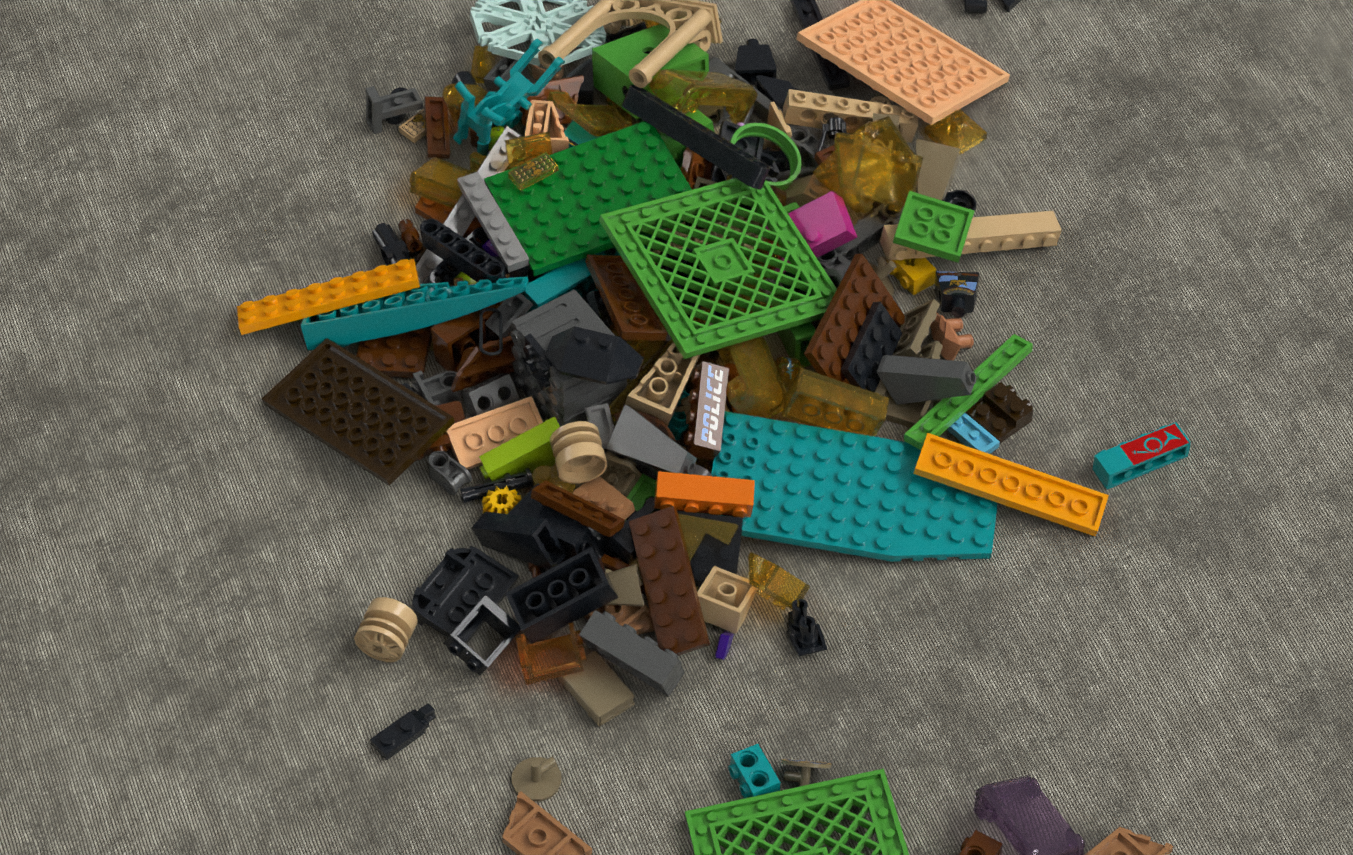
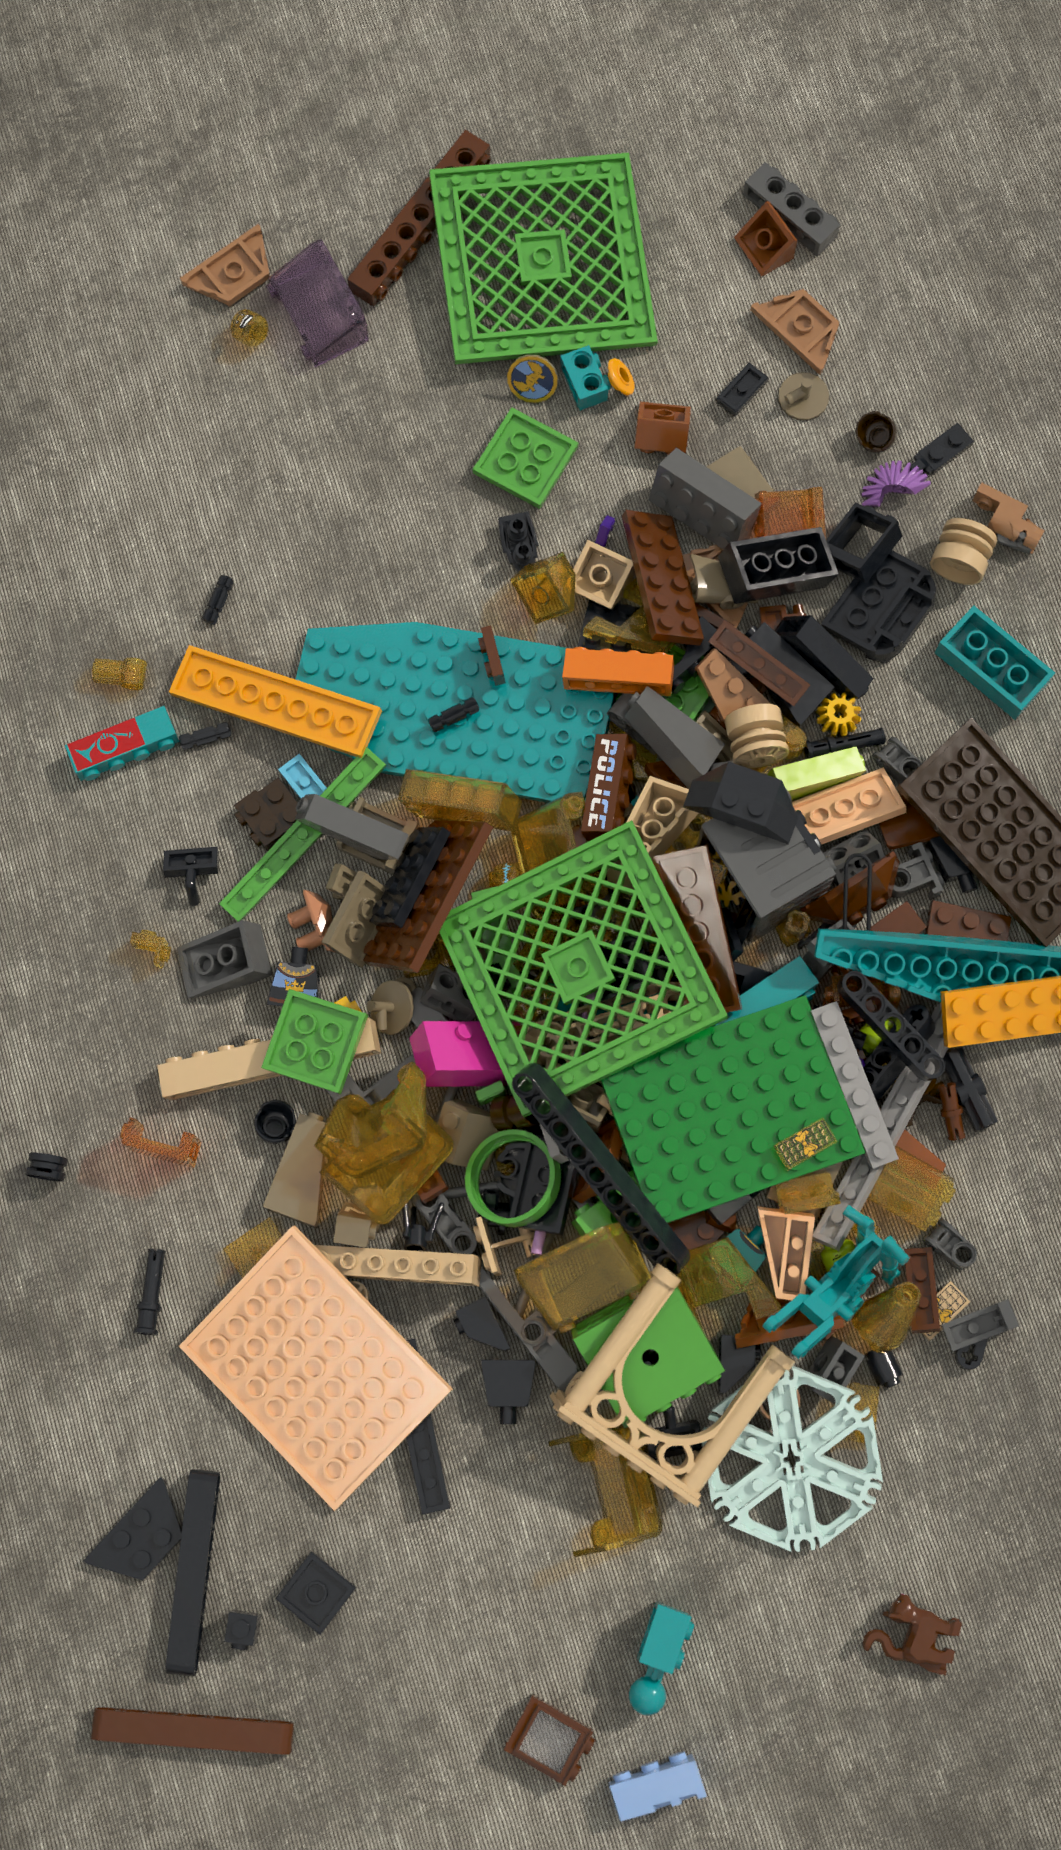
camera: 175 degrees left, 25 degrees up
(340, 670) = (1007, 519): none -> medium nougat plate
(360, 546) = (994, 662): none -> teal brick
(410, 154) = (949, 1243): none -> dark grey piece
(451, 699) = (893, 481): none -> medium lavender hair
(466, 737) = (875, 432): none -> dark brown hair
(598, 775) = (742, 389): none -> black plate
(674, 736) = (662, 427): none -> dark orange slope
(714, 782) = (620, 377): none -> light orange piece
(805, 703) = (525, 458): none -> bright green plate
(817, 508) = (493, 666): none -> reddish brown plate
(848, 472) = (453, 714): none -> black axle
(1019, 308) = (224, 959): none -> dark grey slope
(1038, 97) = (149, 1305): none -> black pin
(1048, 179) = (184, 1155): none -> clear orange panel
(1062, 371) = (189, 864): none -> black plate
(1071, 468) = (205, 736): none -> black axle
(1079, 574) = (217, 600): none -> black axle
(1084, 316) = (150, 941): none -> clear yellow bracket
(1093, 801) = (249, 327): none -> clear yellow head
(1136, 171) = (49, 1163): none -> black wheel
(1148, 509) = (126, 673): none -> clear yellow piece

